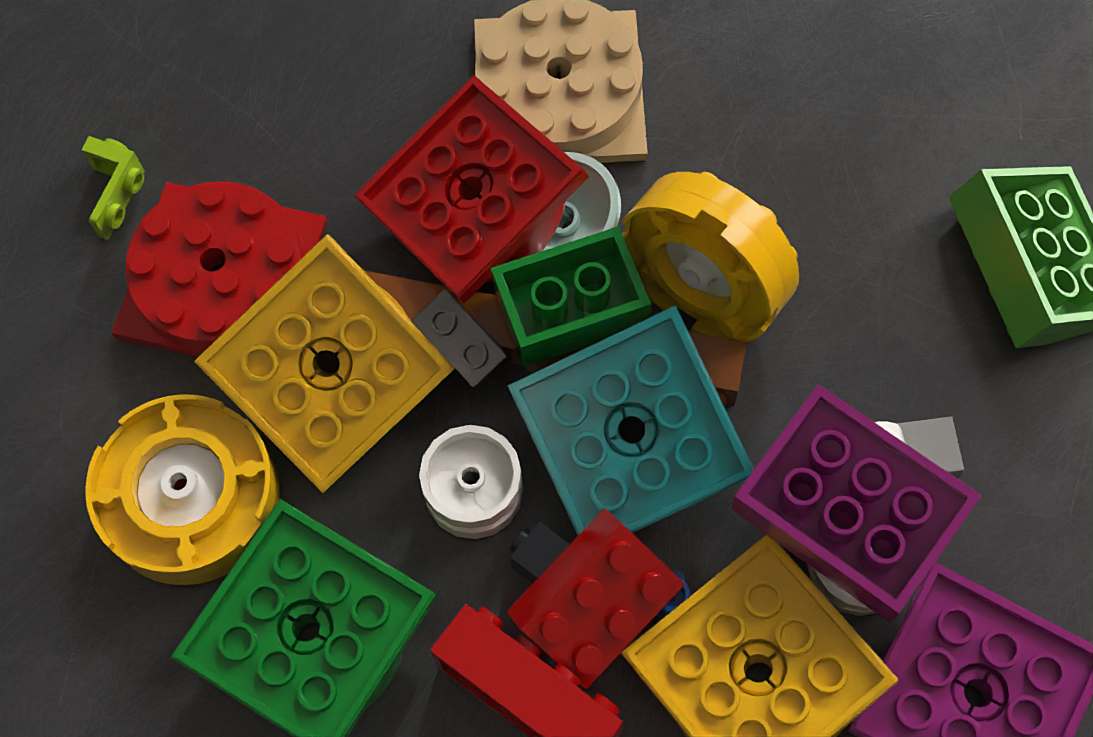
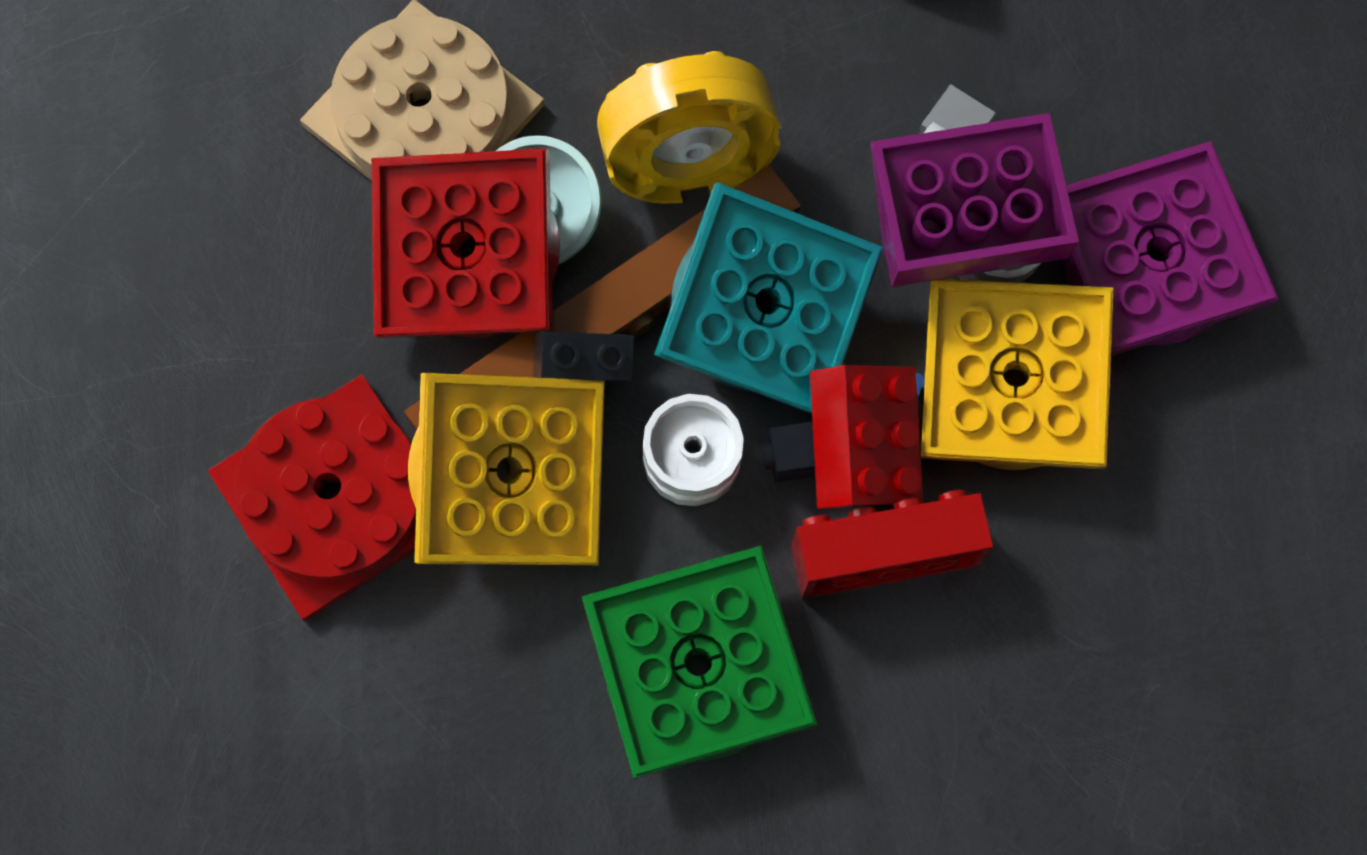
camera: 55 degrees left, 5 degrees up
(127, 178) = (149, 493): lime bracket -> none
(181, 489) = (489, 620): yellow piece -> none
(570, 296) = (626, 250): green brick -> none

